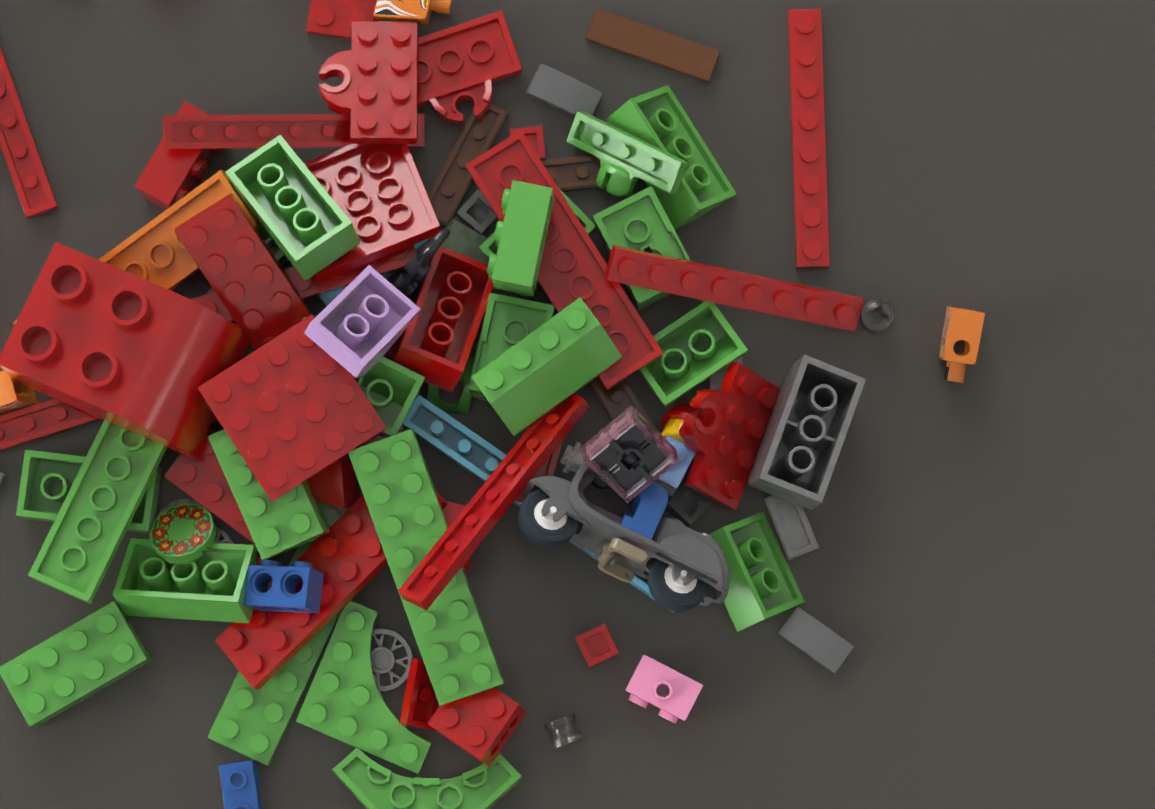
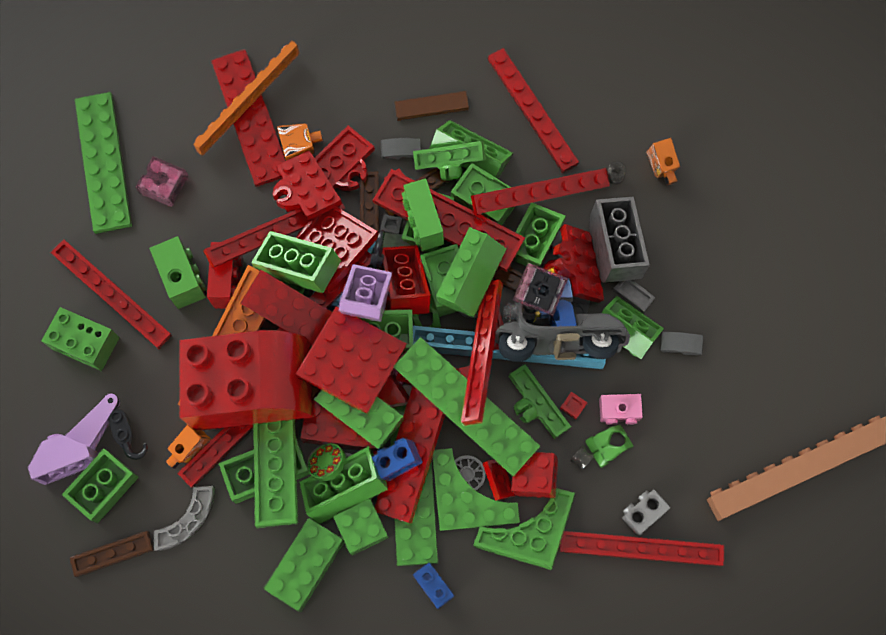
camera: 30 degrees left, 10 degrees down
(115, 101) = (178, 273): none -> bright green piece
(183, 654) = (360, 527): none -> bright green brick
(544, 612) = (537, 403): none -> bright green plate
(601, 733) = (602, 448): none -> bright green piece

